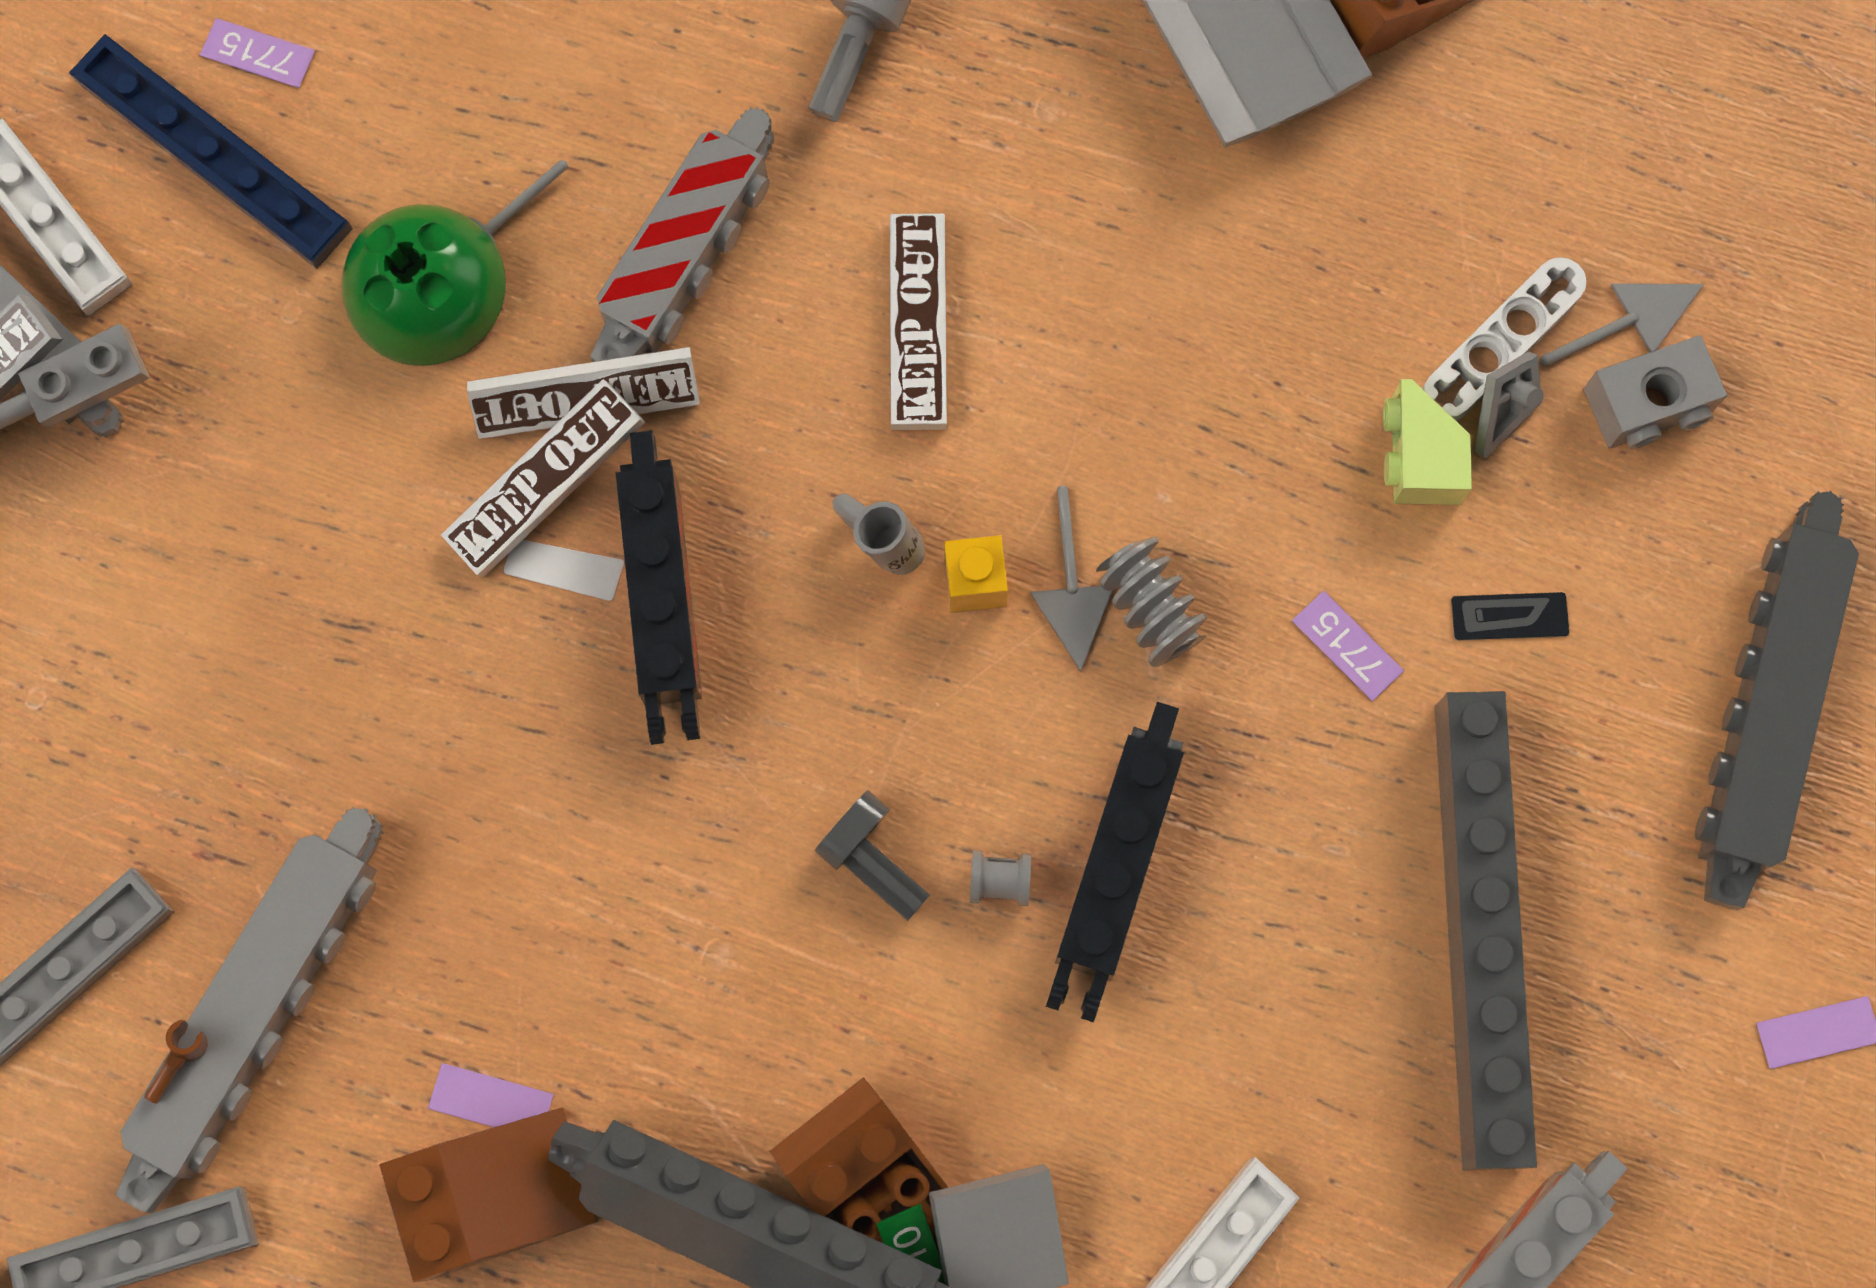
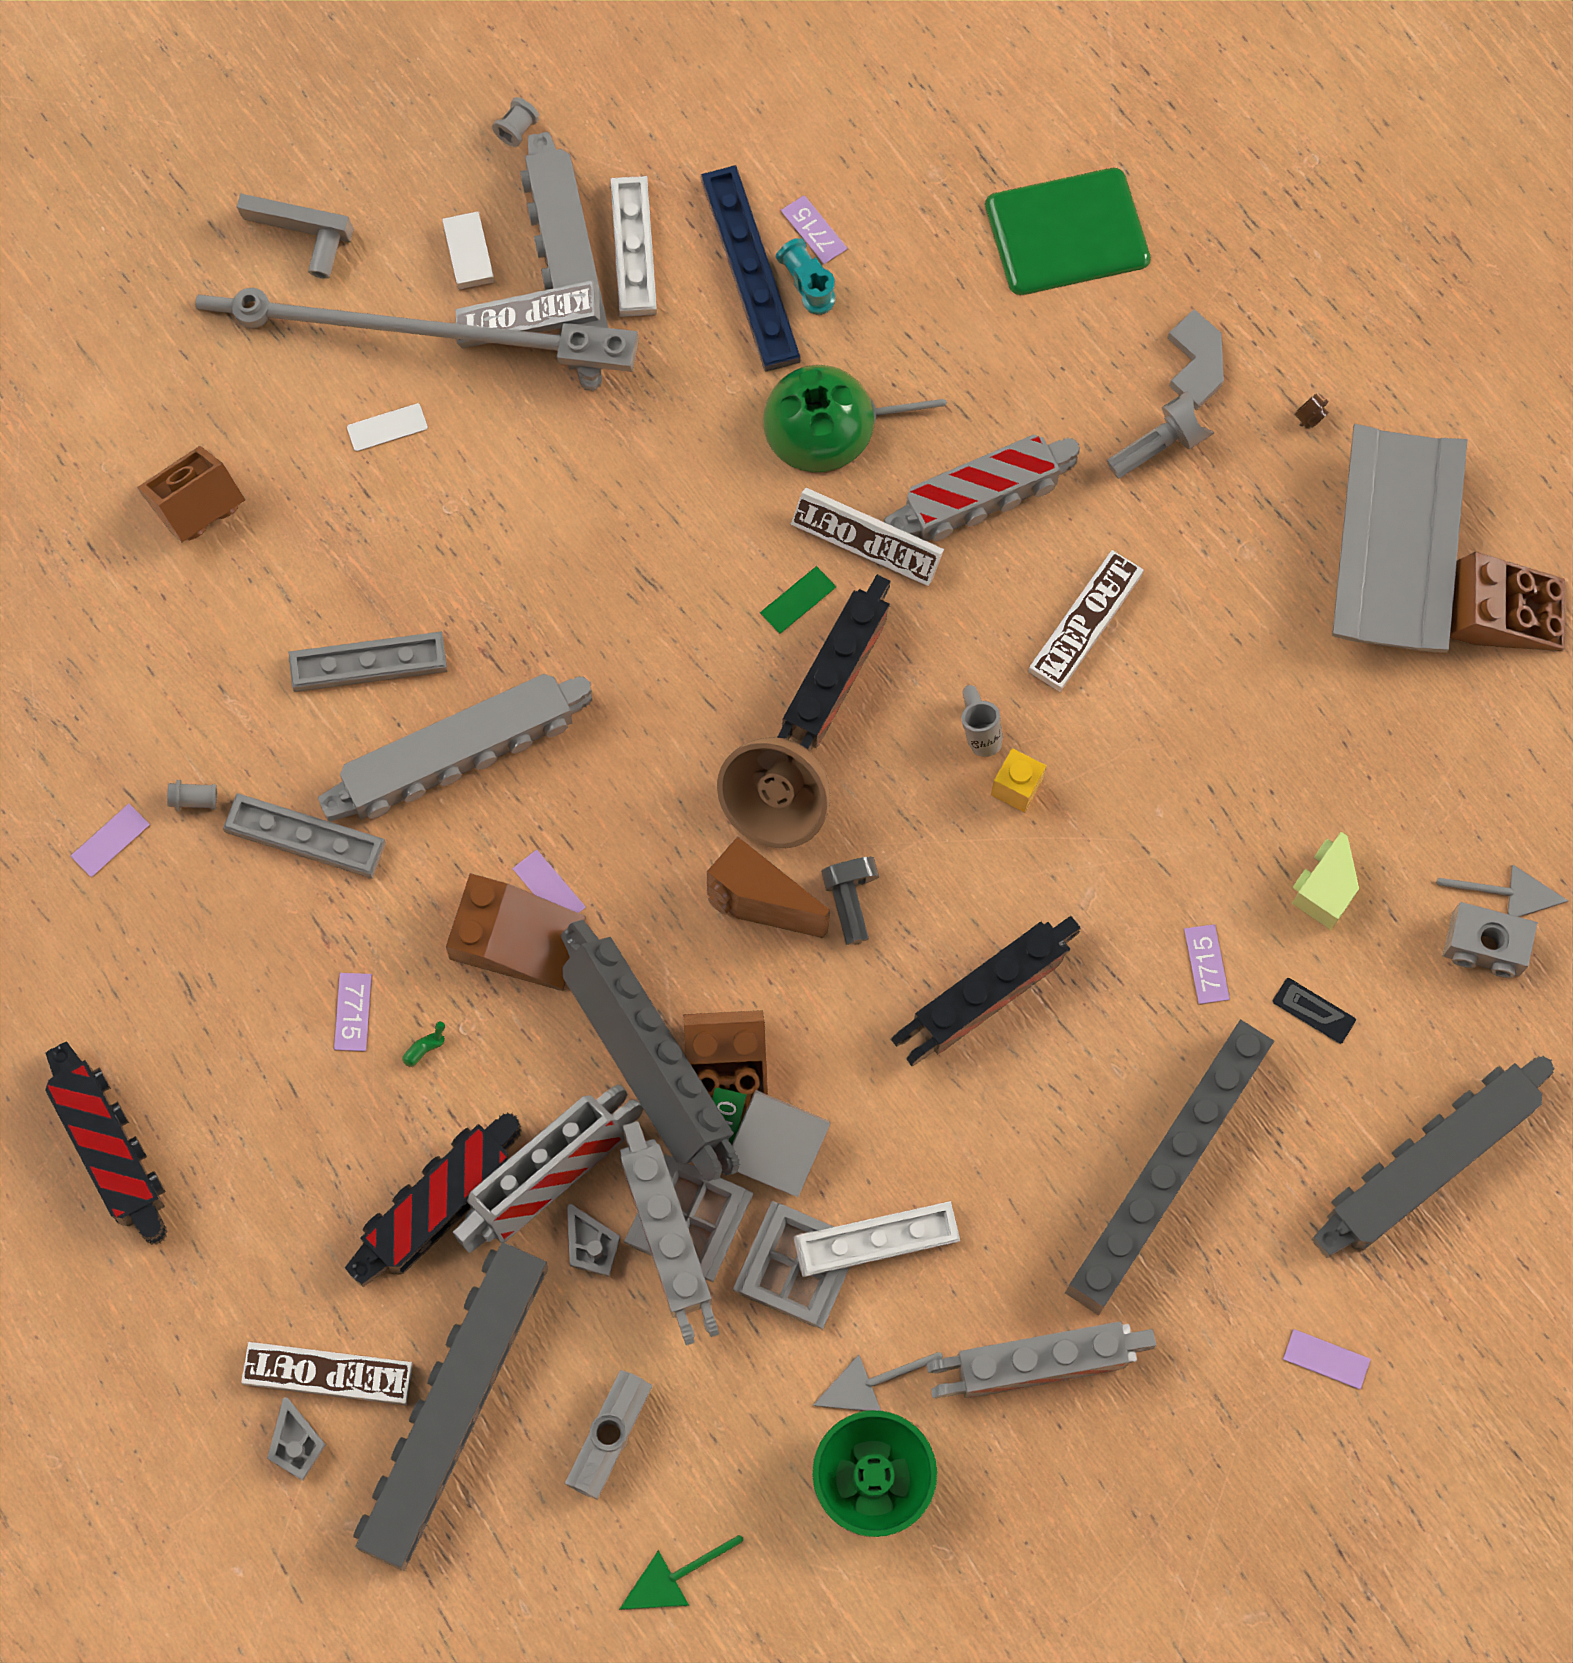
camera: 30 degrees right, 5 degrees down
(175, 1059) = (401, 744): dark orange hand -> none
(295, 116) = (810, 278): none -> teal connector
(542, 478) = (811, 568): tile -> none
(549, 542) = (798, 599): none -> green sticker
(565, 569) = (796, 636): white sticker -> none
(693, 794) = (774, 792): none -> medium nougat piece
(754, 934) = (761, 893): none -> dark orange slope
(1000, 878) = (914, 955): light grey bush -> none
(1072, 611) = (1061, 840): light grey piece -> none
(1151, 601) = (1107, 862): light grey piece -> none
(1501, 340) = (1422, 857): white beam -> none
(1507, 401) = (1399, 887): light grey piece -> none

